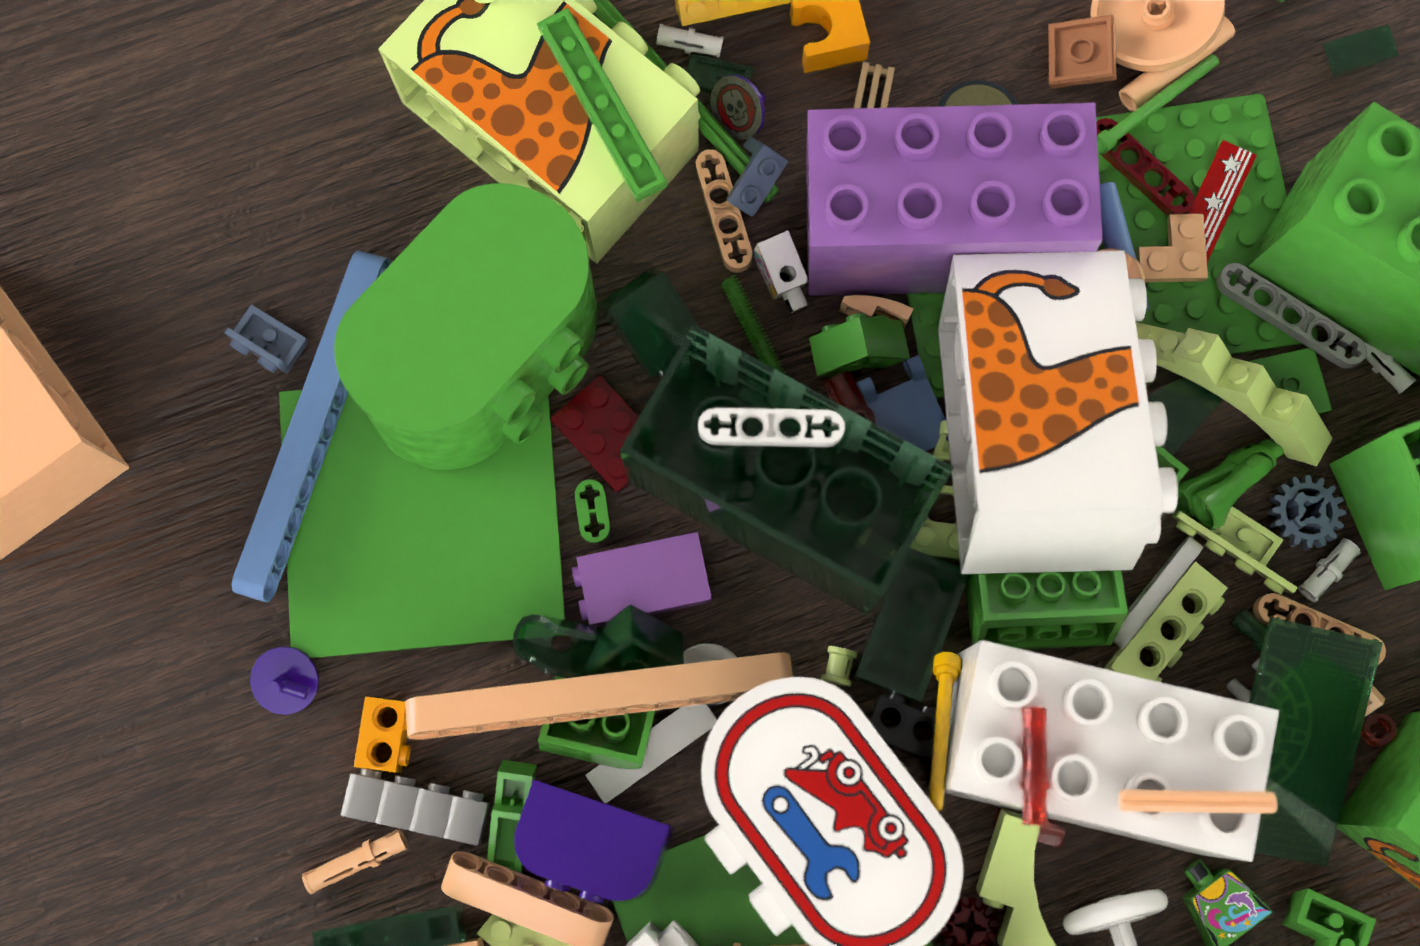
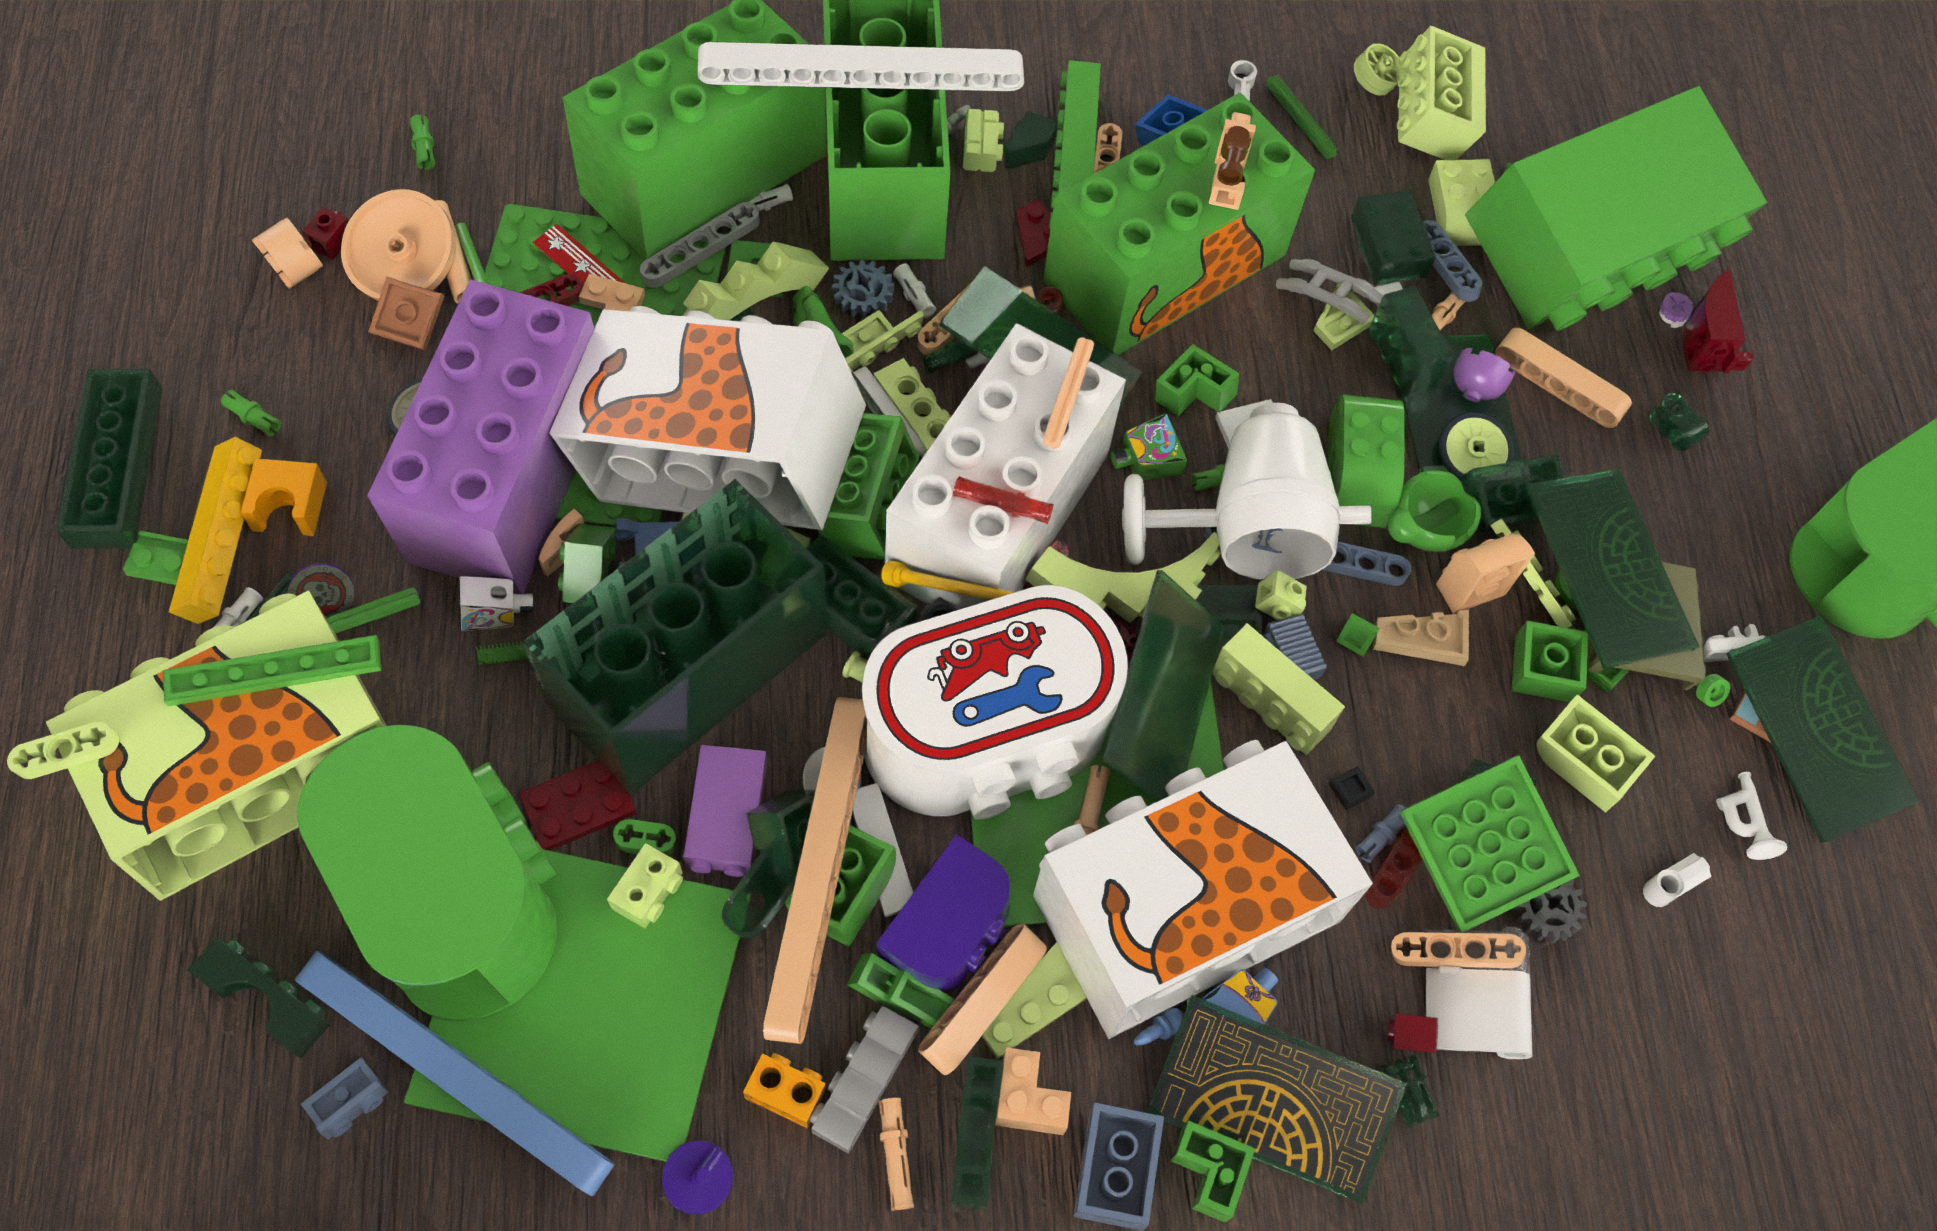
camera: 80 degrees left, 15 degrees down
(324, 264) = (290, 1020): none -> clear green arch
(536, 532) = (646, 886): none -> yellowish green brick
(649, 319) = (491, 724): clear green slope -> none
(723, 211) = (412, 636): light nougat beam -> none
(757, 177) = (395, 593): sand blue bracket -> none
(771, 434) = (639, 603): white beam -> none
(878, 72) = (345, 474): tan tile -> none
(1360, 50) = (503, 126): clear green slope -> none

